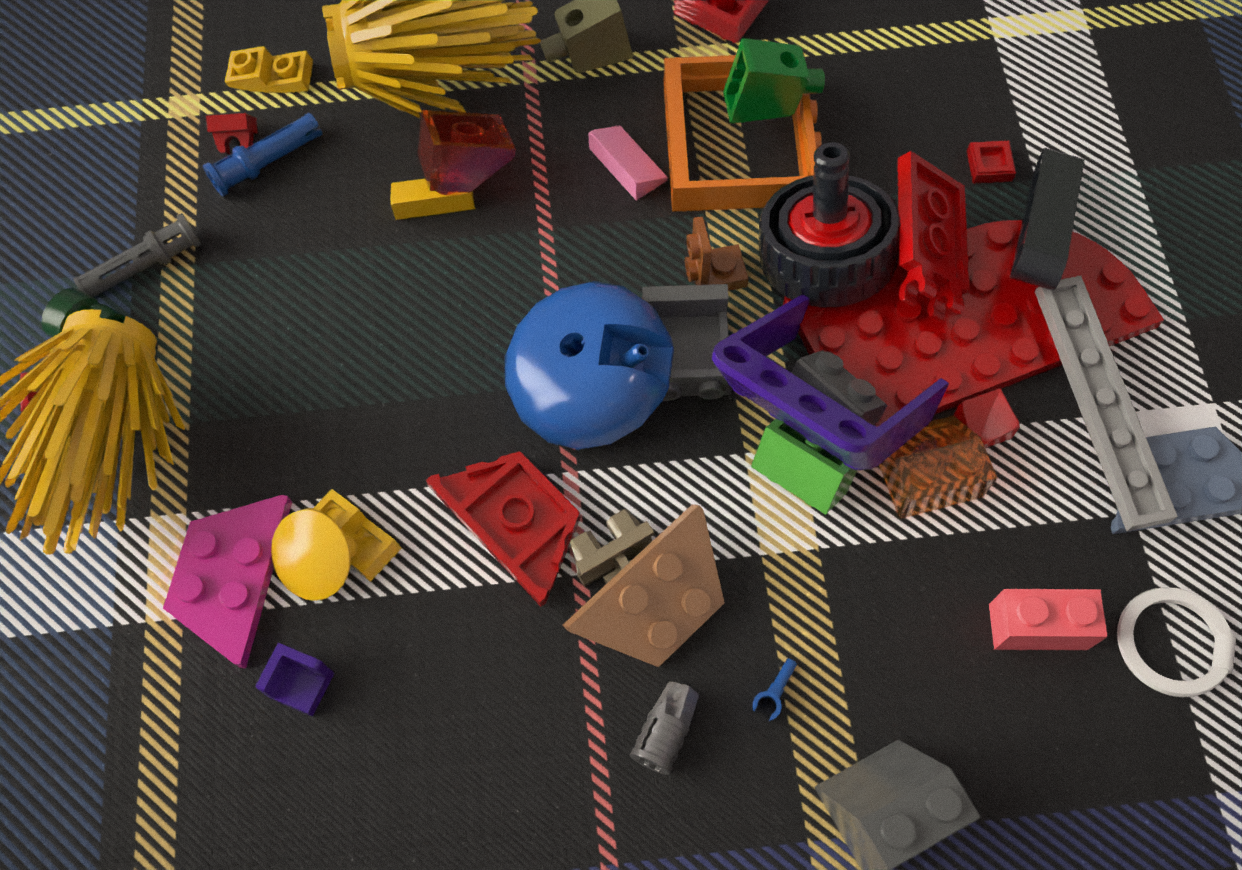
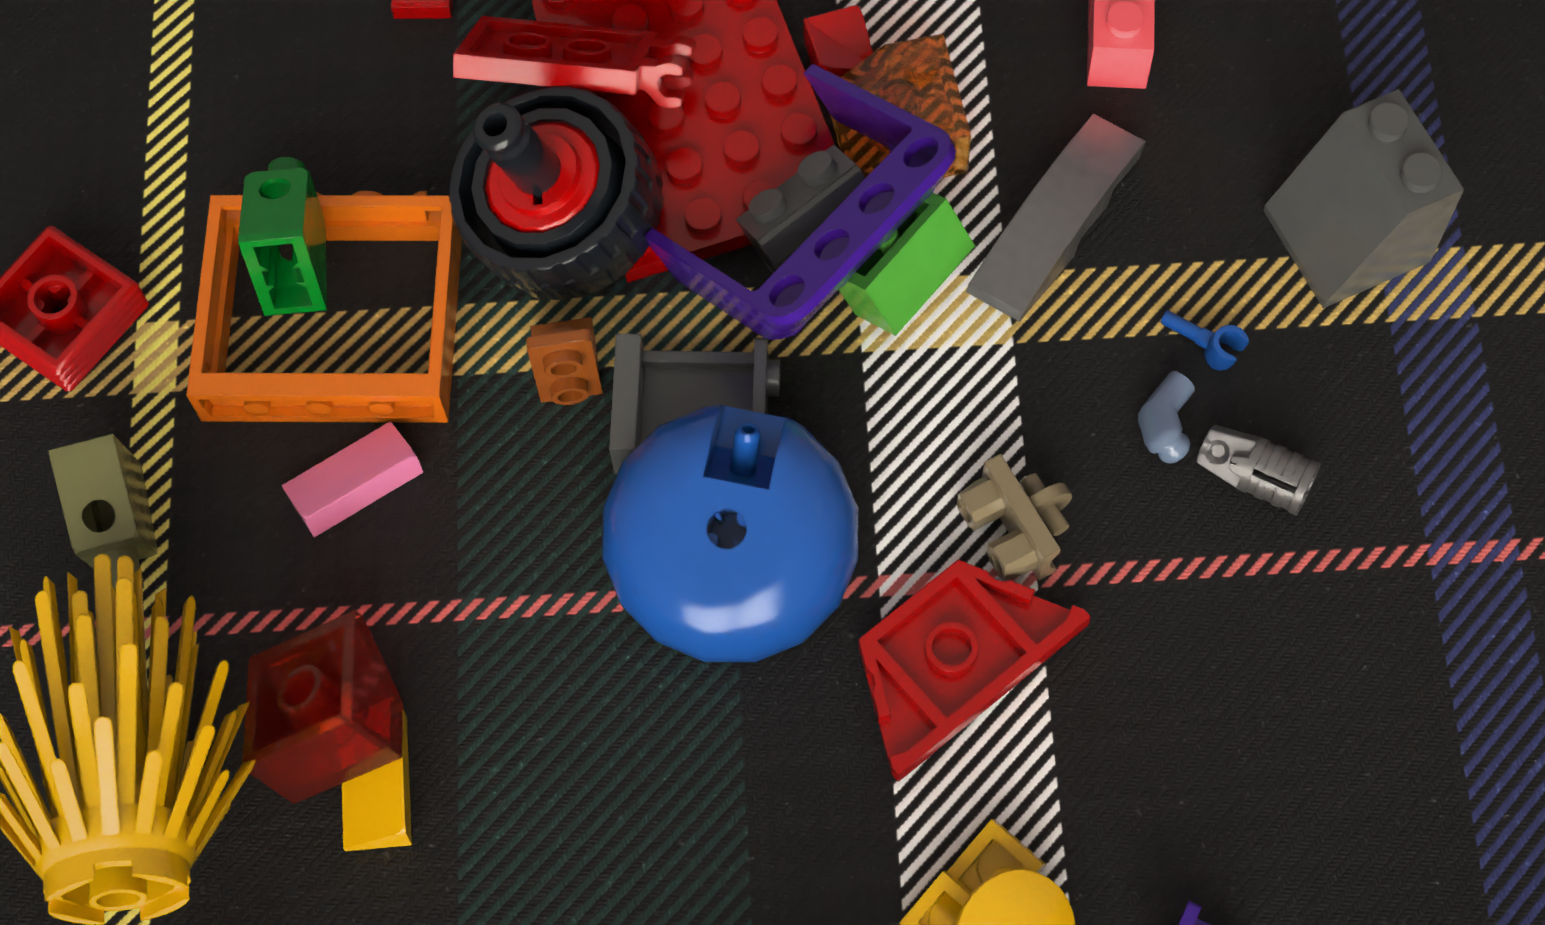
camera: 85 degrees left, 0 degrees up
(657, 595) = (1083, 460): medium nougat wing -> none
(701, 655) = (1160, 421): none -> sand blue arm
(863, 575) = (1055, 218): none -> flat silver slope

